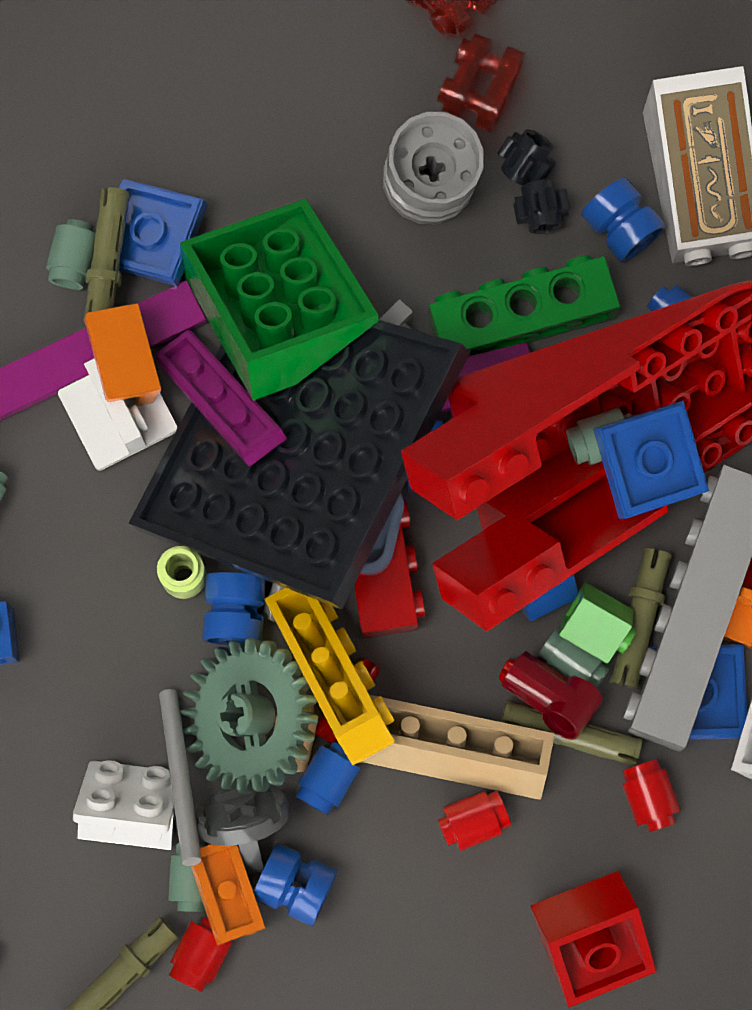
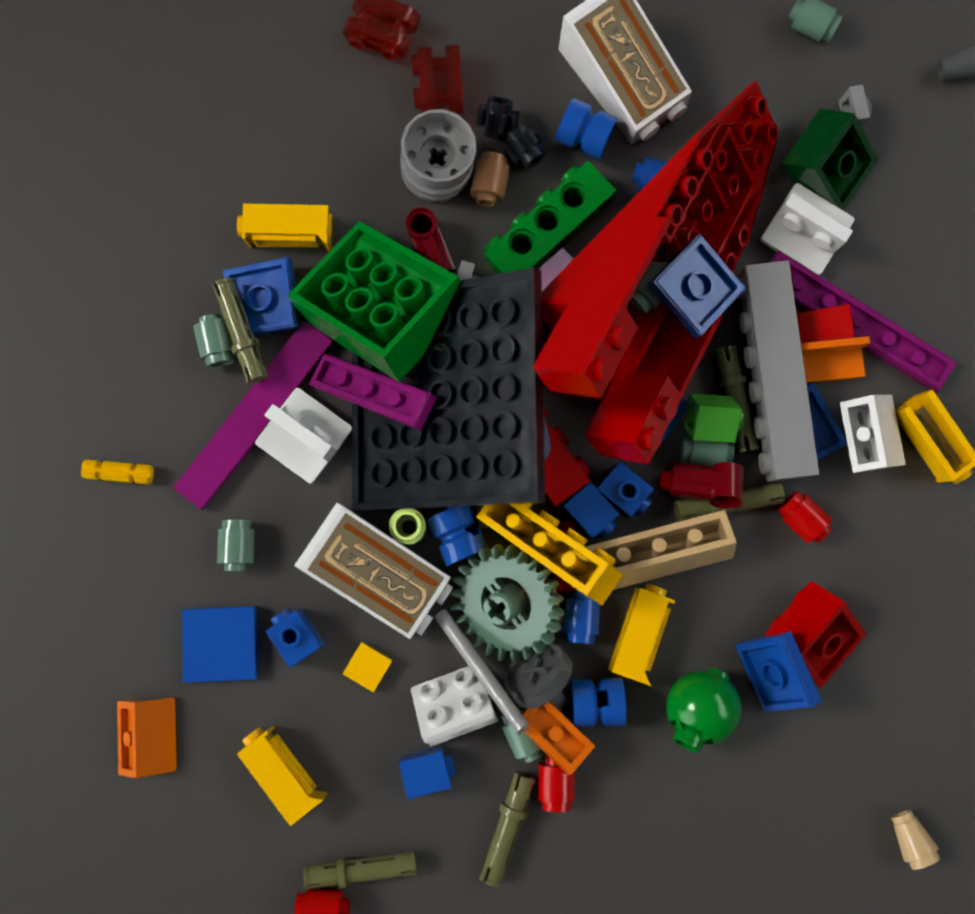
camera: 30 degrees left, 5 degrees up
(53, 711) = (367, 666): none -> yellow tile
(59, 863) = (427, 771): none -> blue brick
(118, 604) = (374, 571): none -> slope
(123, 354) = (288, 394): orange panel -> none
(220, 163) = (286, 225): none -> yellow window
(374, 266) = (431, 244): none -> dark red piece
(388, 831) = (641, 633): none -> yellow window
(401, 662) = (591, 512): none -> blue brick
(412, 951) = (703, 709): none -> green brick
(453, 658) = (625, 491): none -> blue brick
(474, 820) = (695, 595): red brick -> none
(482, 223) = (490, 179): none -> medium nougat brick
(521, 954) = (778, 672): none -> blue tile

